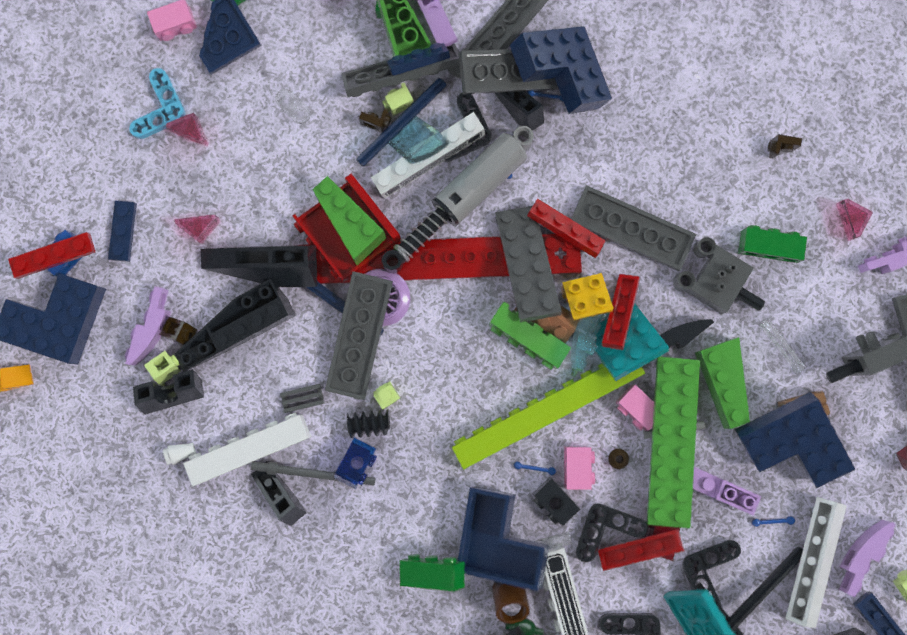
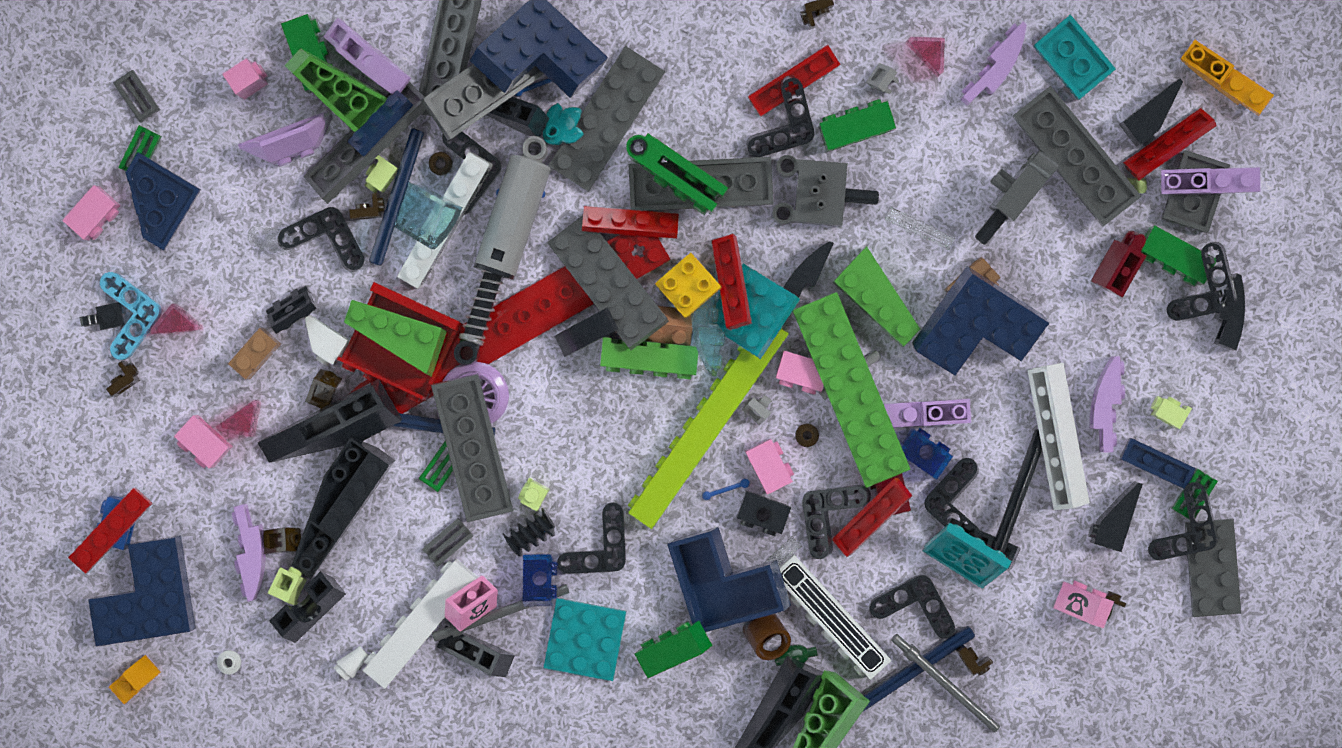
camera: 20 degrees left, 5 degrees up
(92, 400) = (229, 654): none -> white plate
(122, 231) = (164, 466): dark blue plate -> none
(127, 153) = (122, 383): none -> dark brown bracket
(141, 101) = (107, 317): none -> black plate
(160, 227) = (202, 441): none -> bright pink brick
(234, 181) = (254, 353): none -> medium nougat brick
(271, 233) = (323, 388): none -> dark brown bracket
(274, 162) = (291, 309): none -> black plate
(291, 199) = (325, 341): none -> white slope
(294, 454) = (471, 603): none -> bright pink brick
(313, 346) = (430, 483): none -> green tile
(334, 117) = (324, 228): none -> black beam
(345, 42) = (290, 141): none -> lavender wedge
(367, 528) = (584, 639): none -> teal plate
(415, 470) = (602, 555): none -> black beam
(446, 109) = (438, 156): none -> dark brown plate
(492, 292) = (586, 332): none -> black slope
(551, 133) = (565, 123): none -> teal plate
(586, 145) = (608, 118): none -> dark grey plate
(590, 419) = (757, 409): none -> light grey tile
(622, 206) = (650, 159): none -> green hinge
(713, 529) = (939, 457): none -> clear blue brick
(726, 218) = (795, 123): none -> black beam
(740, 188) = (807, 72): none -> red plate
(789, 520) = (1016, 406): blue hinge -> none
(808, 219) = (882, 77): none -> light grey tile

